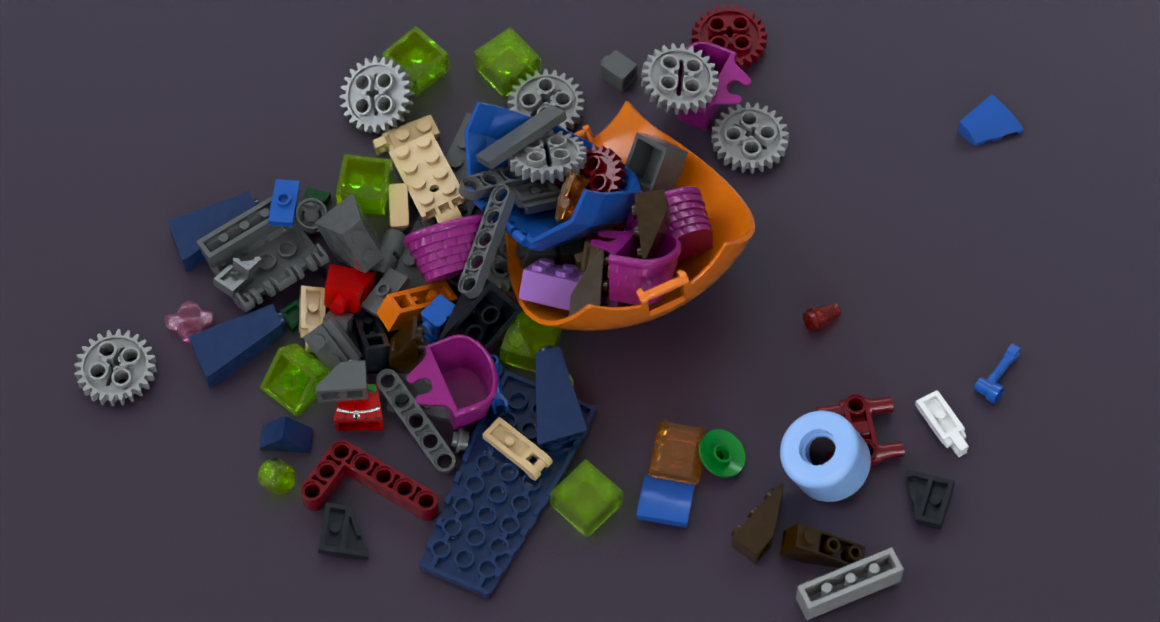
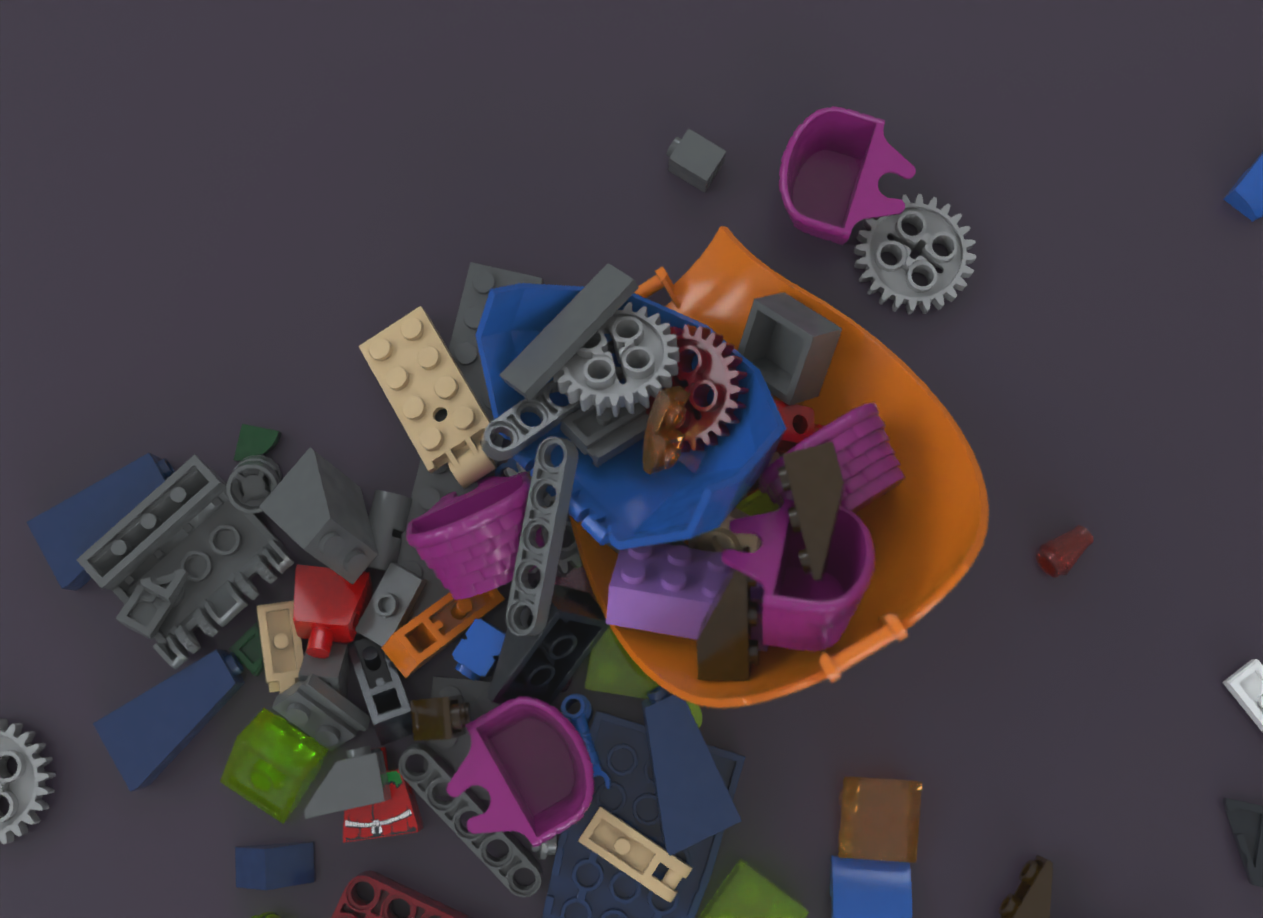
camera: 10 degrees left, 20 degrees up
(188, 320) = (91, 675): clear pink plate -> none
(284, 203) = (205, 477): blue plate -> none
(367, 180) = (329, 414): clear neon green piece -> none
(377, 95) = (354, 252): light grey gear -> none
(398, 206) = (388, 449): tan slope -> none
(405, 133) = (382, 311): tan hinge -> none
(420, 58) = (377, 185): clear neon green piece -> none
(506, 60) = (521, 166): clear neon green piece -> none
(559, 92) = (564, 215): light grey gear -> none
(701, 80) = (838, 186): light grey gear -> none
(727, 447) = (958, 815): green dish -> none
(731, 36) = (851, 52): dark red gear -> none
(838, 476) = (1129, 855): light blue piece -> none
(864, 425) = (1150, 745): dark red piece -> none

